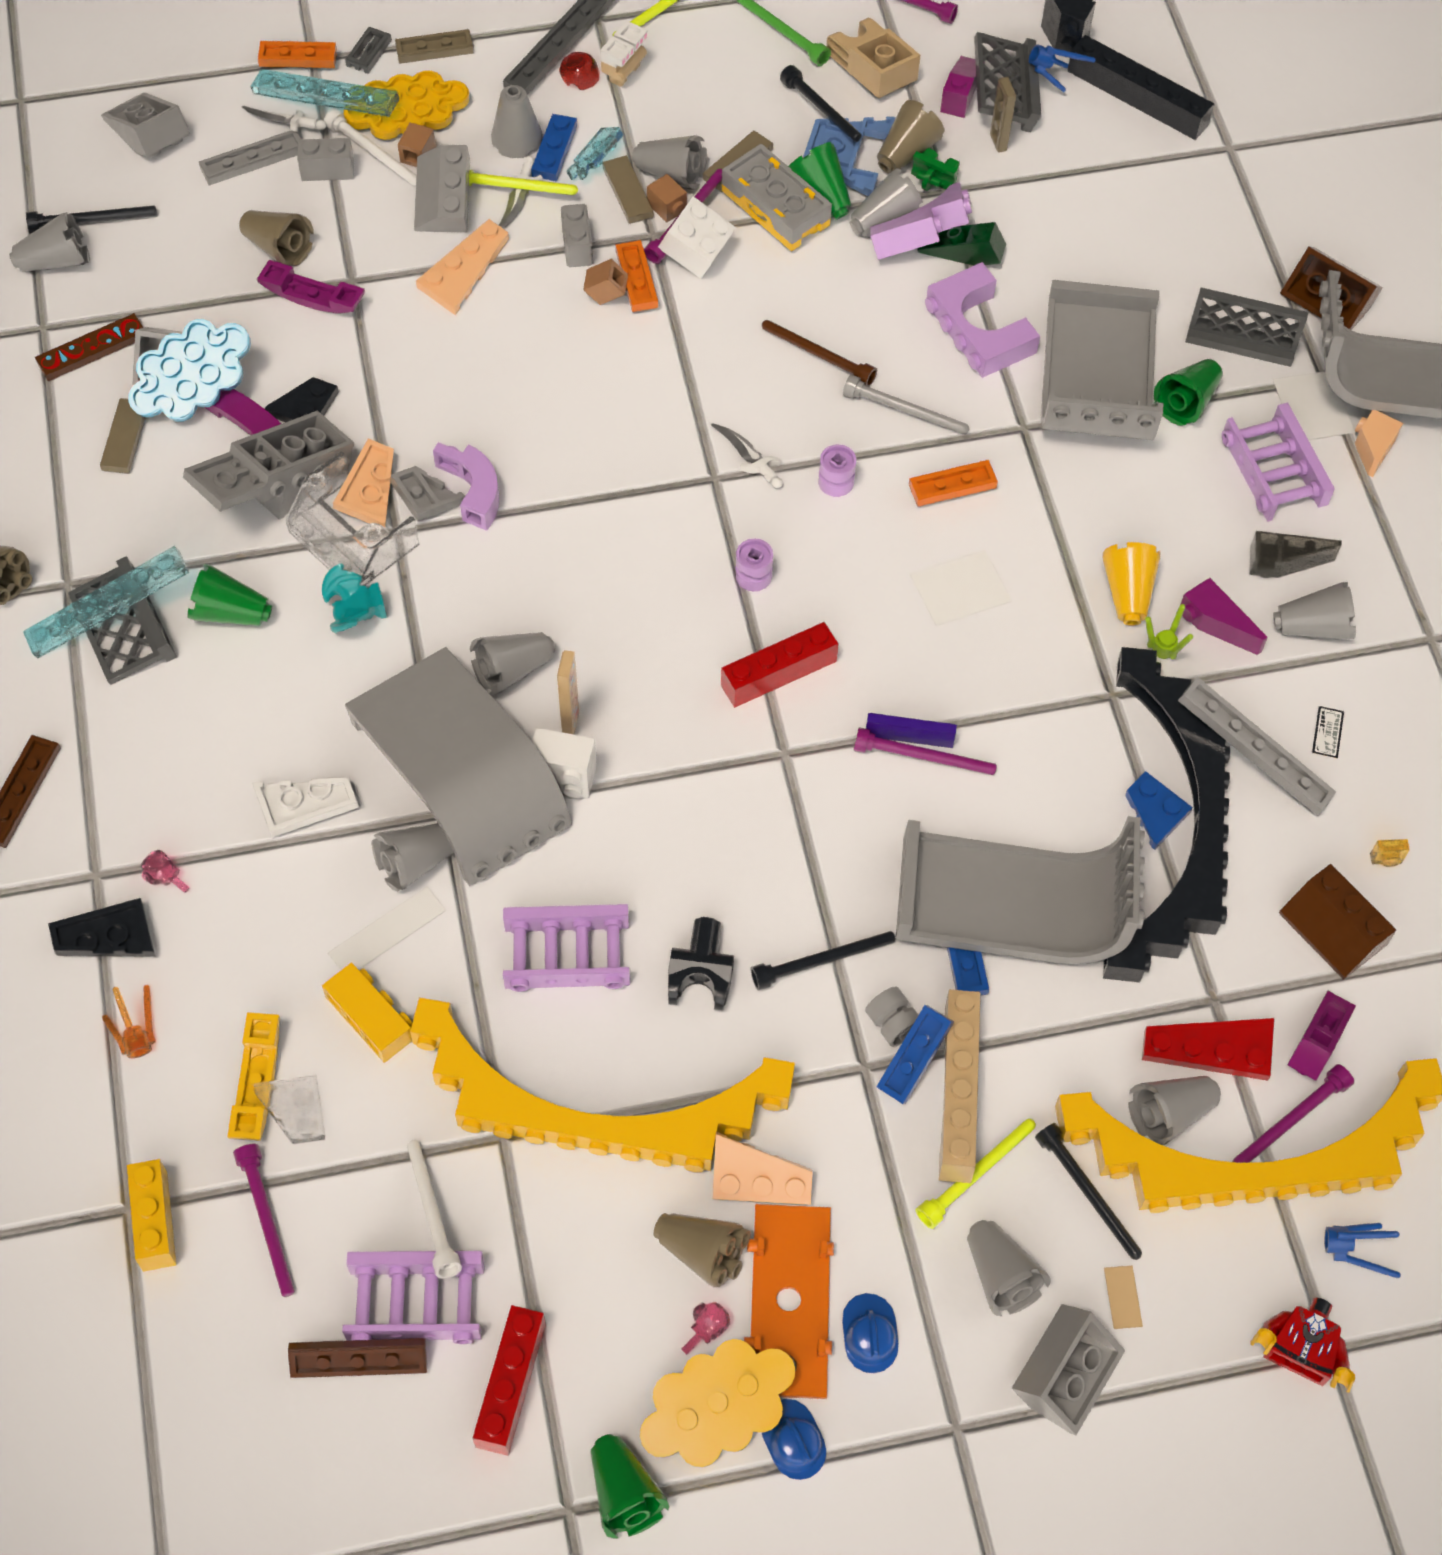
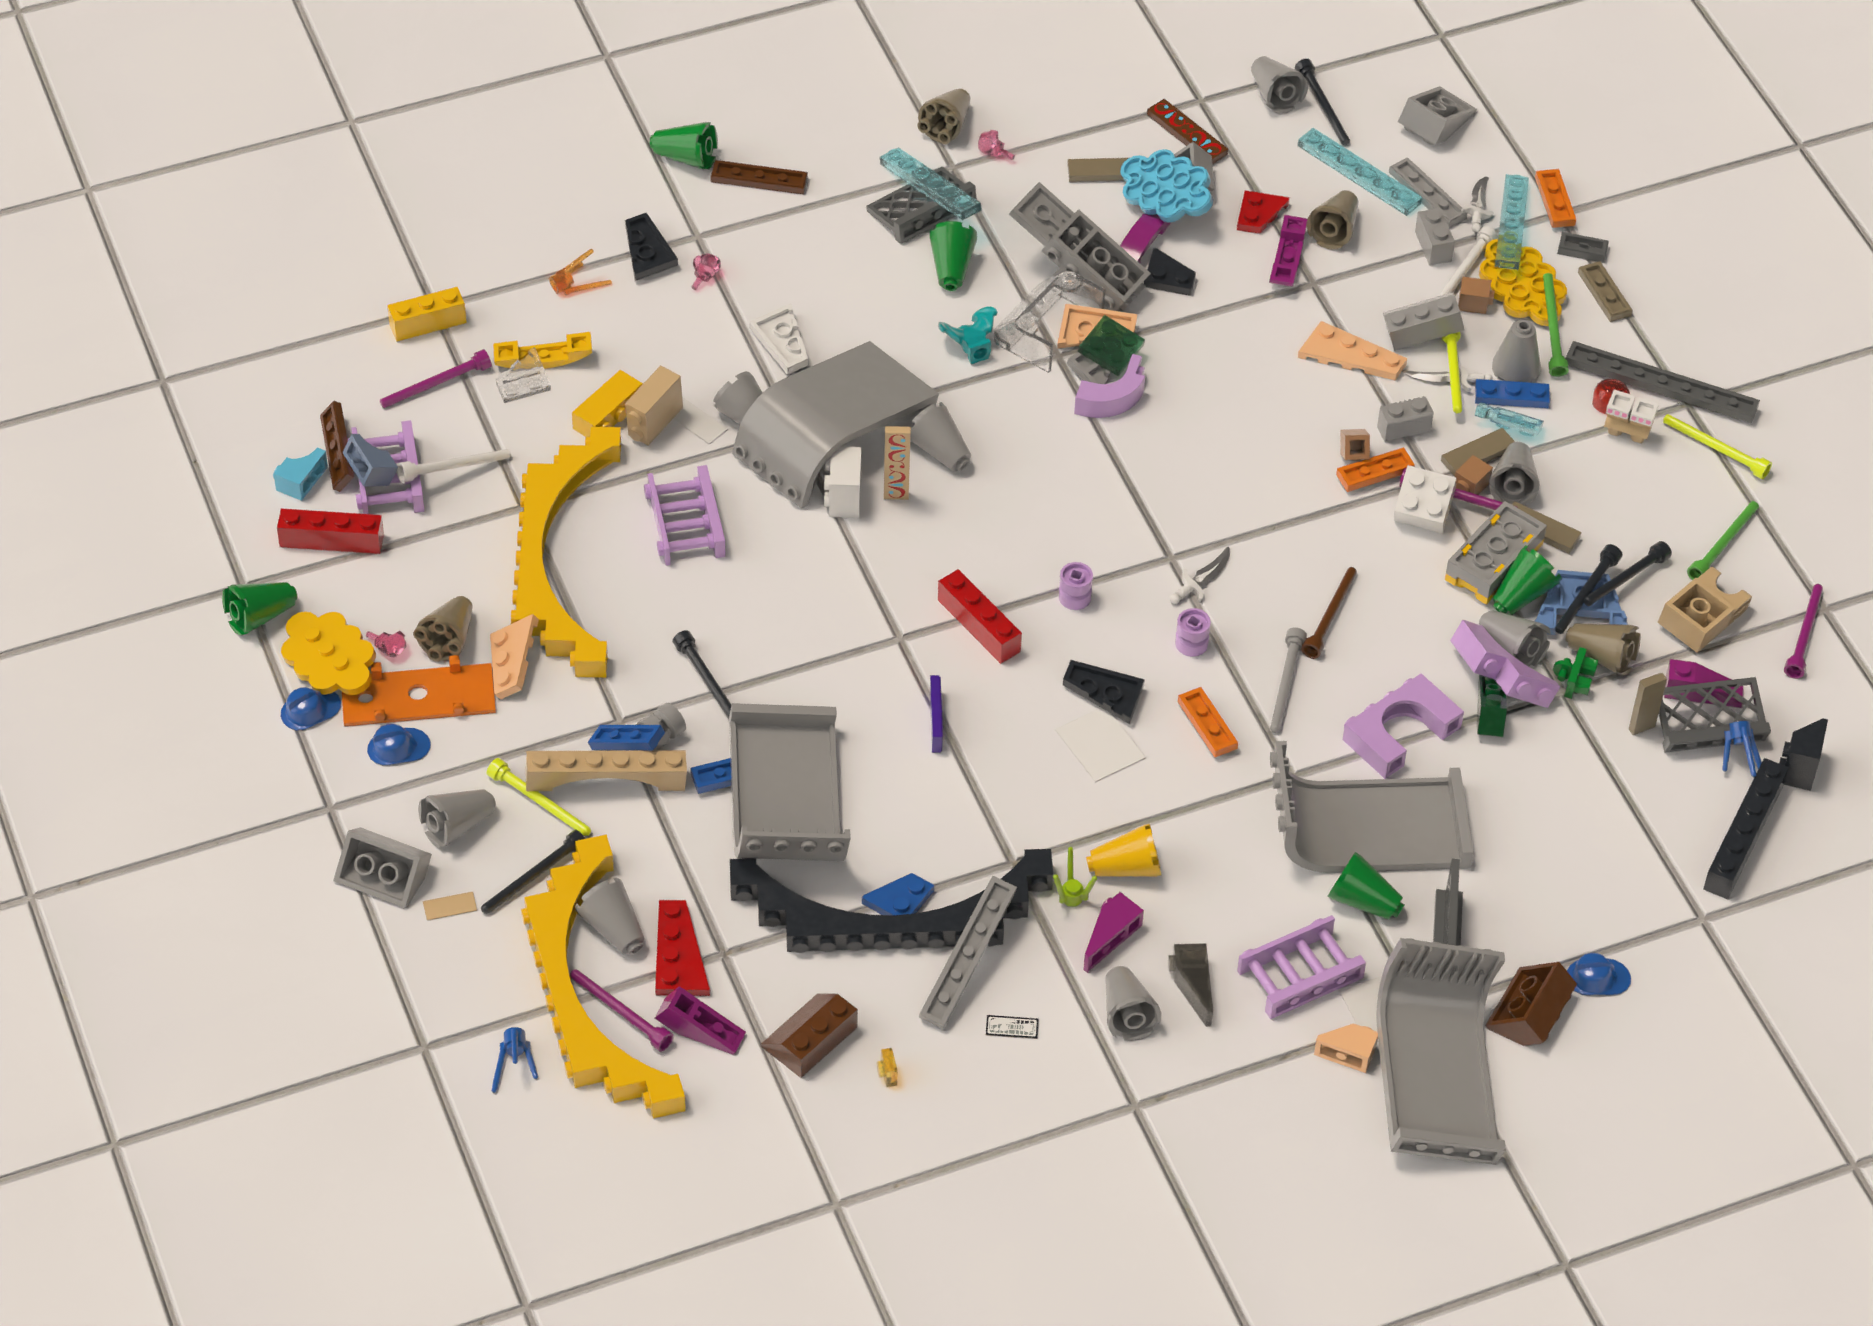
camera: 80 degrees right, 10 degrees down
(51, 535) = (992, 146): none -> clear pink piece
(202, 208) = (1359, 171): none -> clear light blue plate
(233, 305) = (1259, 210): none -> red wing
(393, 953) = (654, 405): none -> tan brick
(401, 1414) = (299, 475): none -> medium azure arch
(411, 469) = (1111, 345): none -> clear green plate
(421, 1311) = (369, 463): none -> sand blue arch
(470, 86) = (1558, 364): none -> bright green piece
(701, 964) = (685, 601): black connector -> none
(798, 111) = (1609, 557): none -> black piece
(867, 741) = (920, 687): magenta piece -> none
(895, 565) = (1105, 688): none -> black wing
(1292, 237) = (1599, 975): none -> blue piece
(1307, 1344) = (422, 1017): red torso -> none

